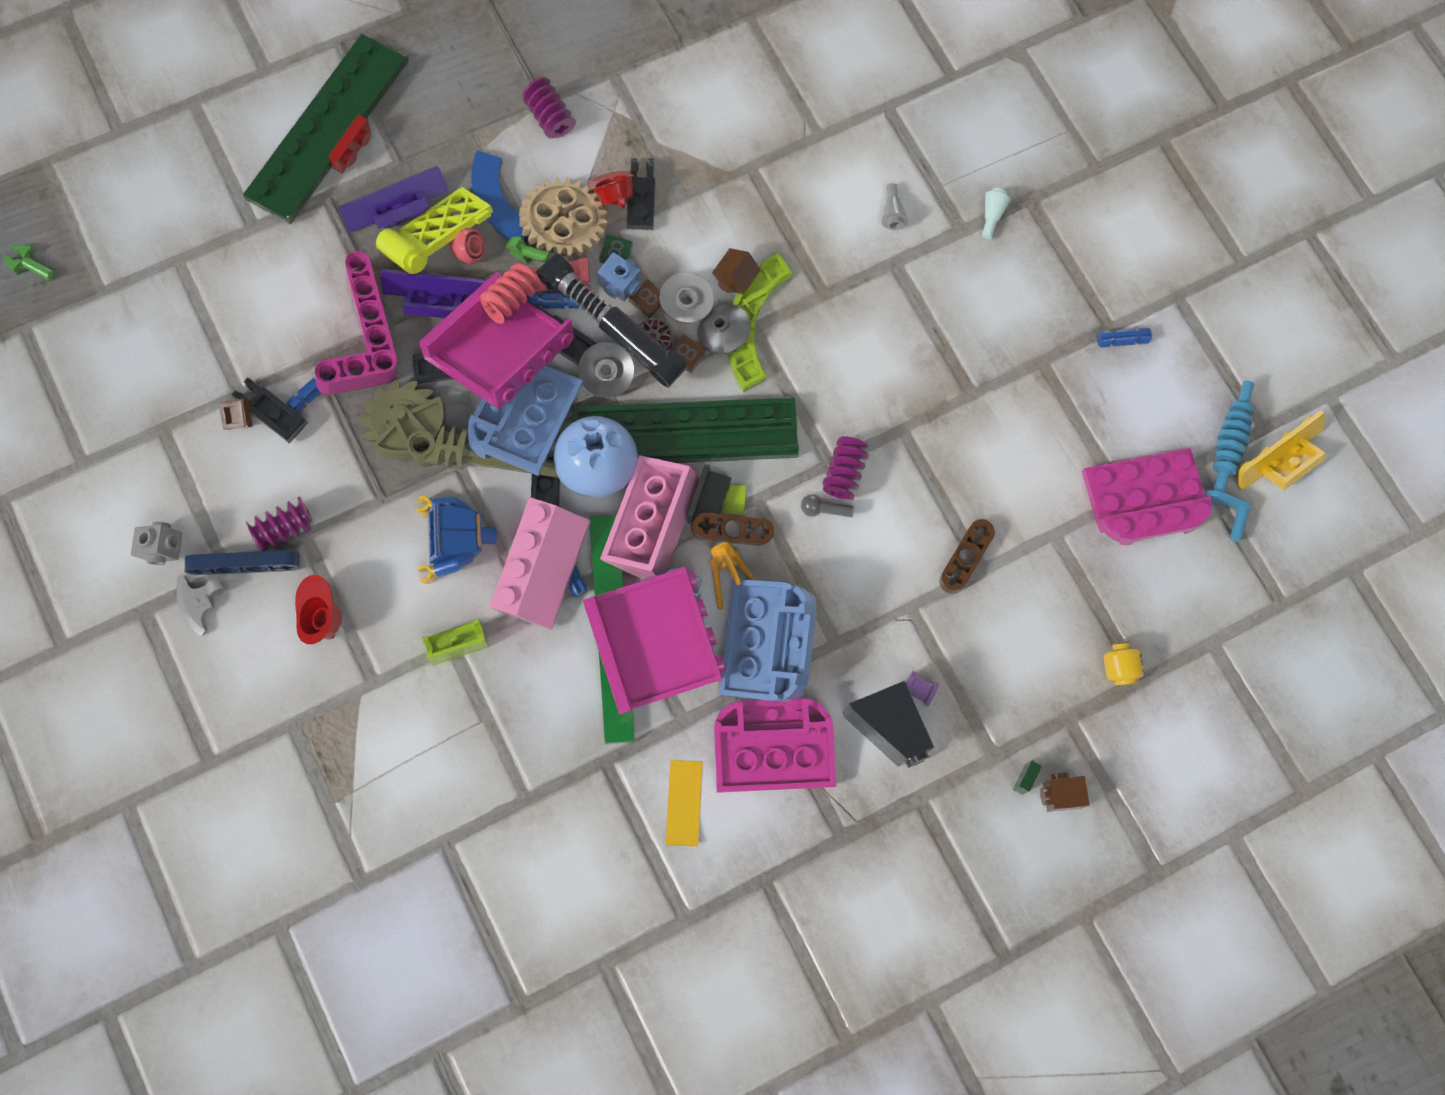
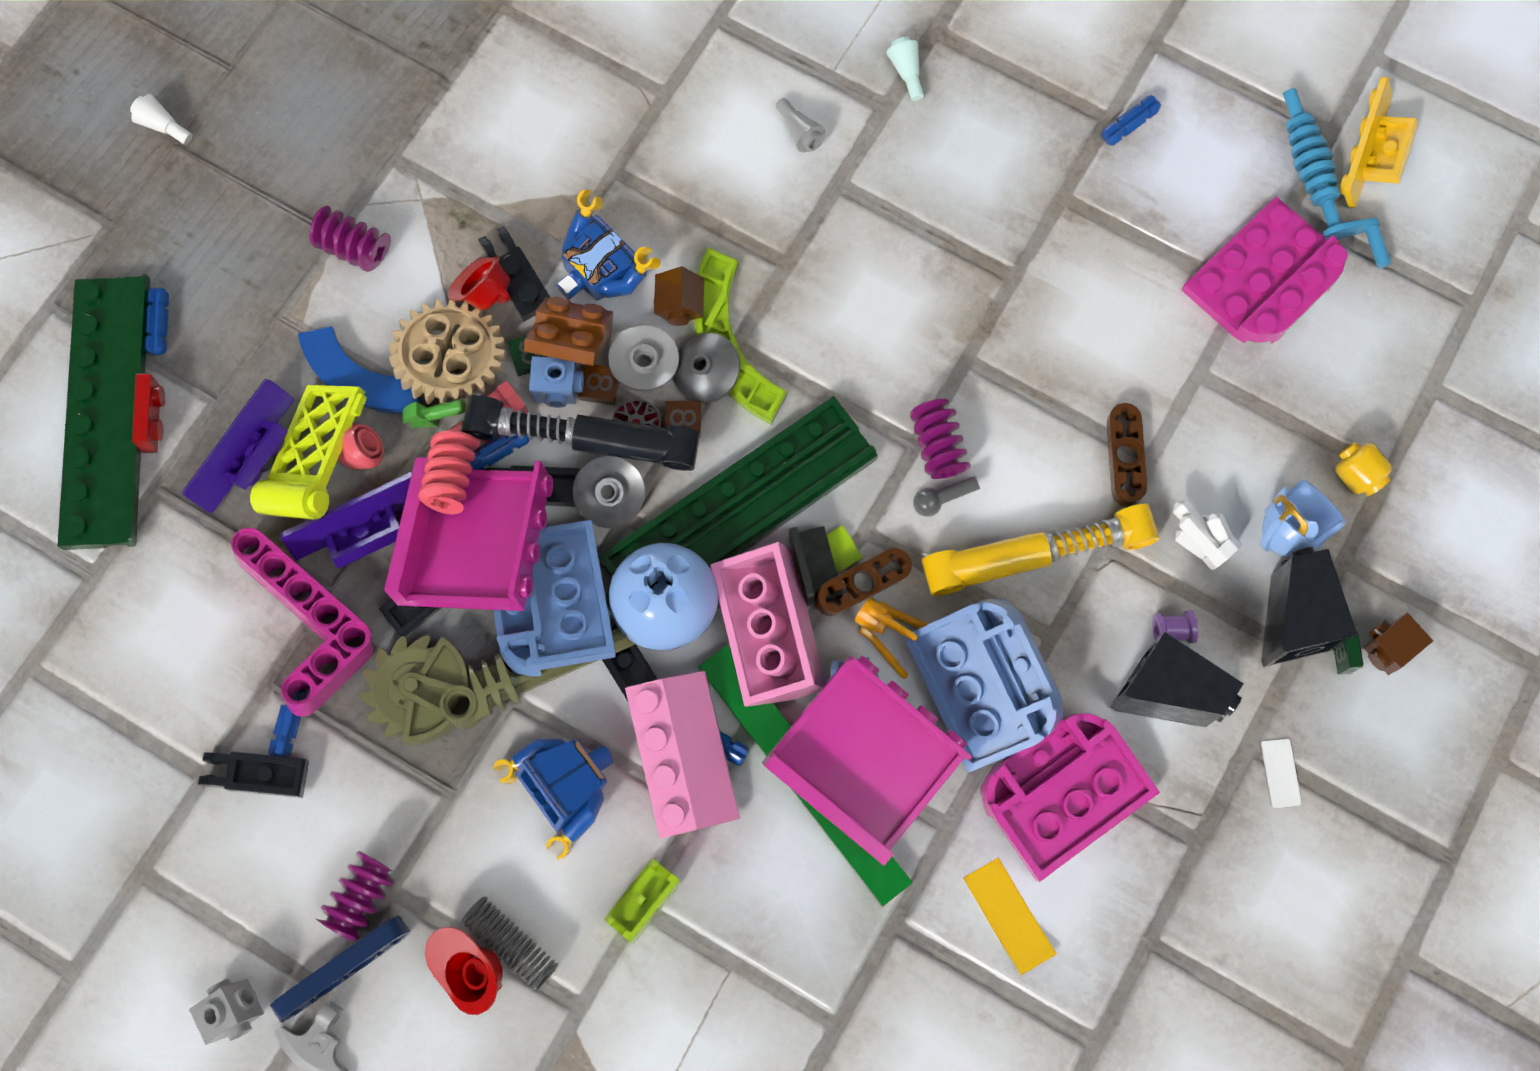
camera: 25 degrees left, 0 degrees up
(235, 414) = (219, 803): tile -> none
(353, 617) = (538, 981): none -> dark grey piece
(394, 90) = (156, 321): none -> blue axle
(649, 251) = (569, 331): none -> dark orange plate
(701, 214) = (599, 257): none -> torso
(796, 559) = (953, 570): none -> yellow piece
(928, 828) = (1281, 773): none -> white sticker
(982, 641) = (1205, 535): none -> white rock
(1015, 731) = (1305, 609): none -> black slope
(1053, 670) = (1299, 520): none -> light blue helmet

